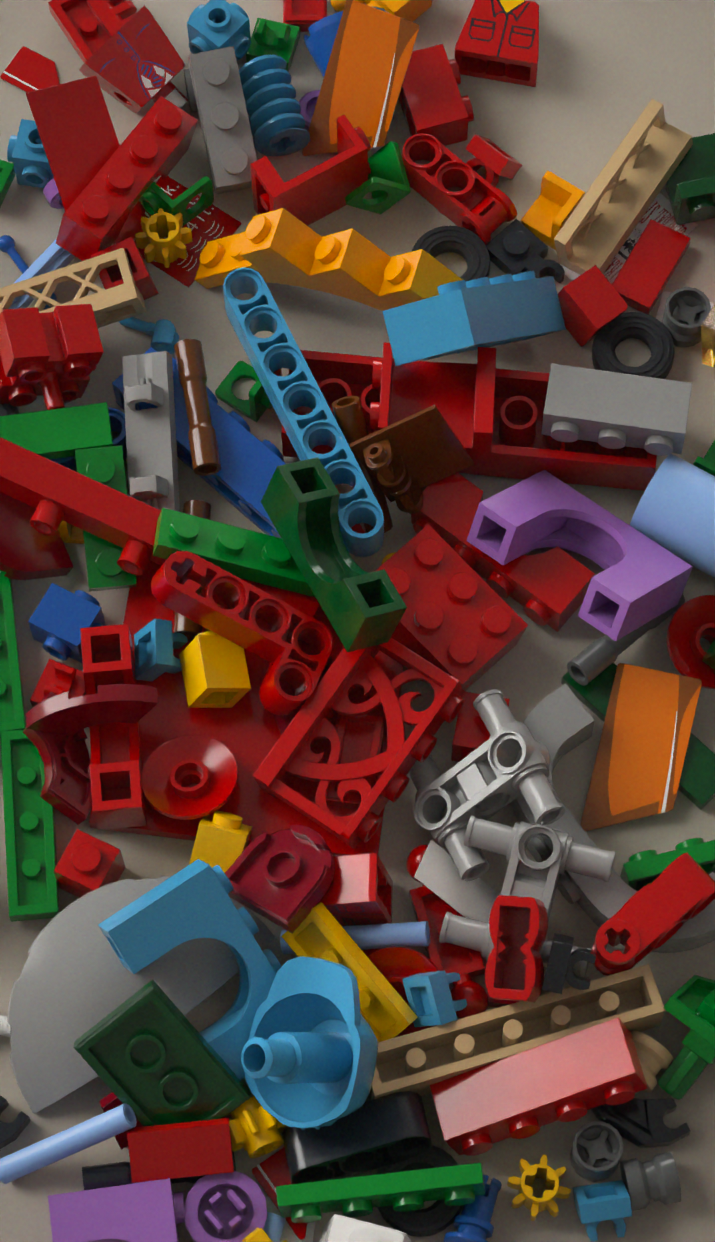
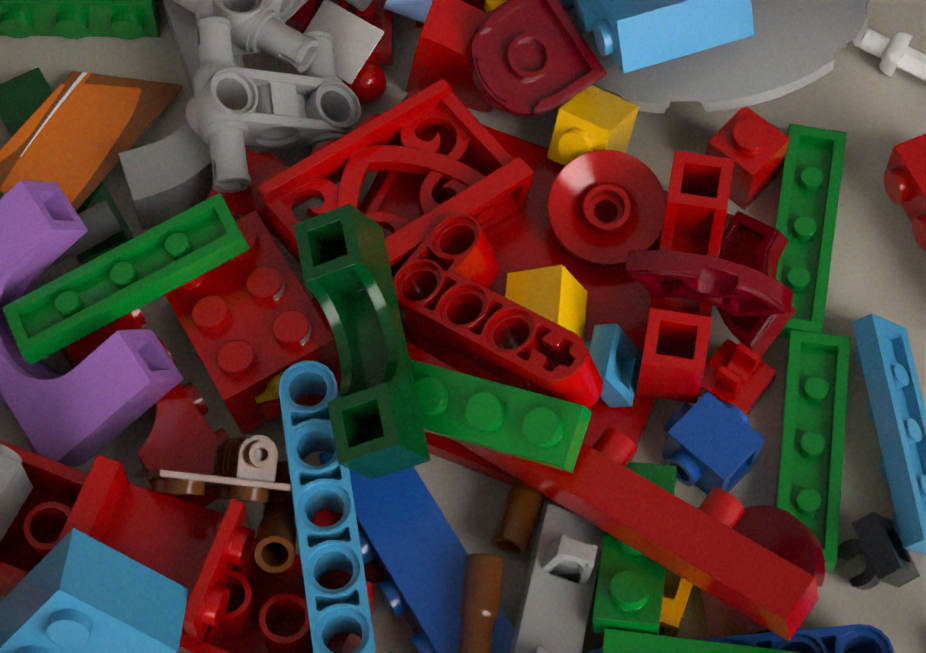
camera: 165 degrees left, 5 degrees down
(533, 590) = (125, 278): none -> green plate

